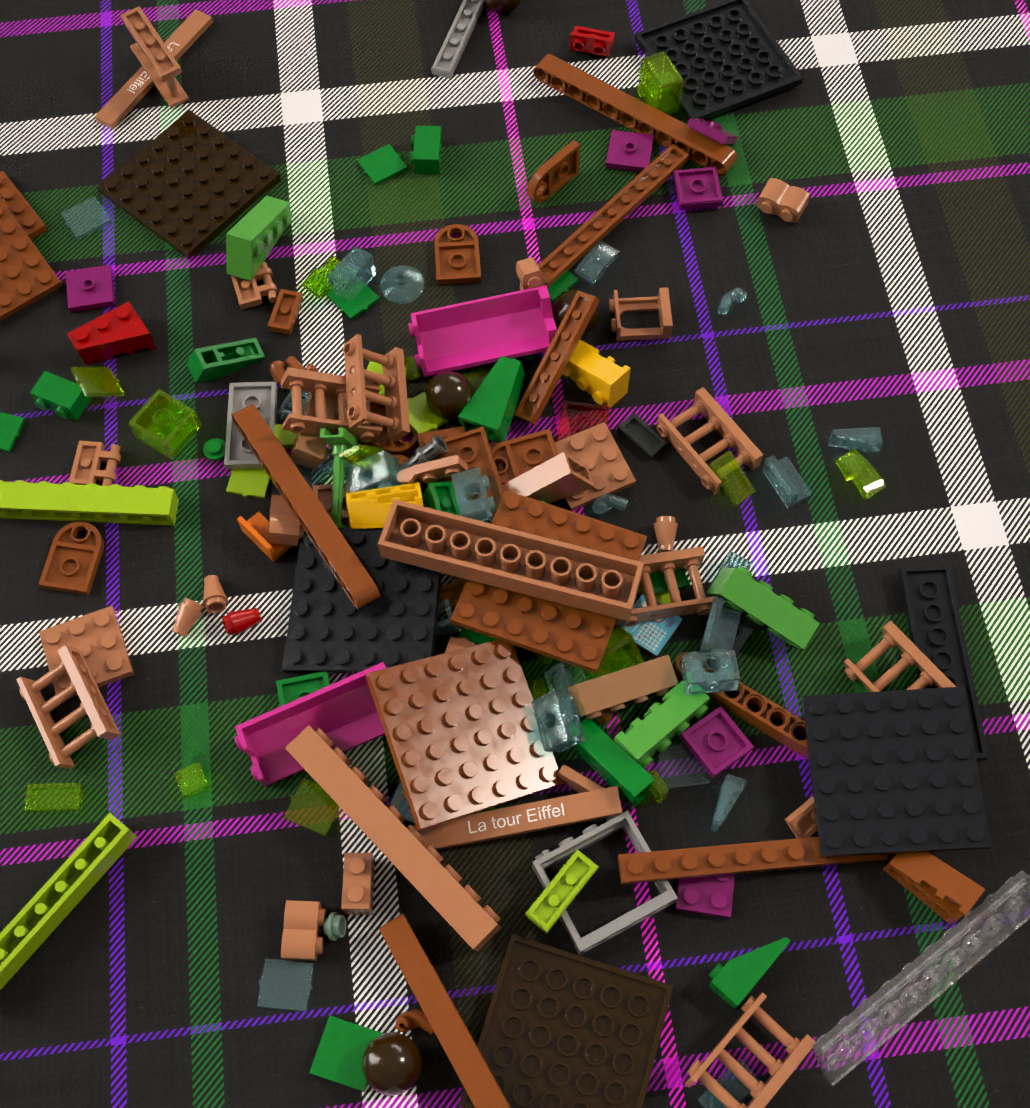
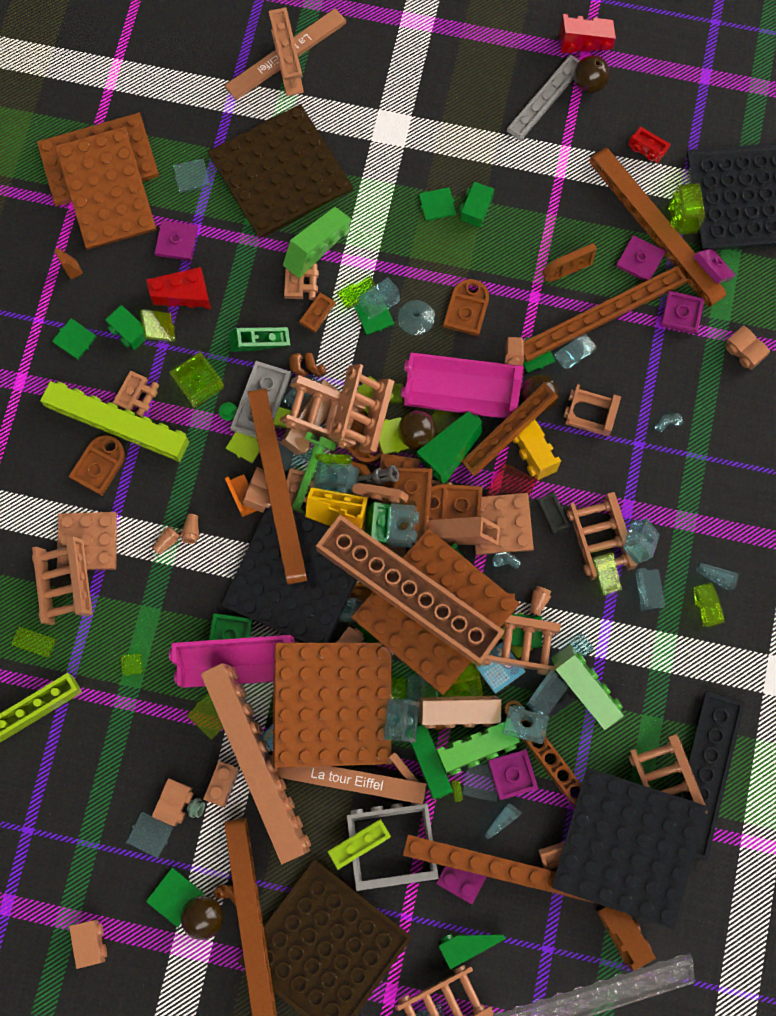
camera: 20 degrees right, 10 degrees up
(239, 621) = (203, 557): red cone -> none
(756, 426) = (641, 540): none -> clear light blue brick

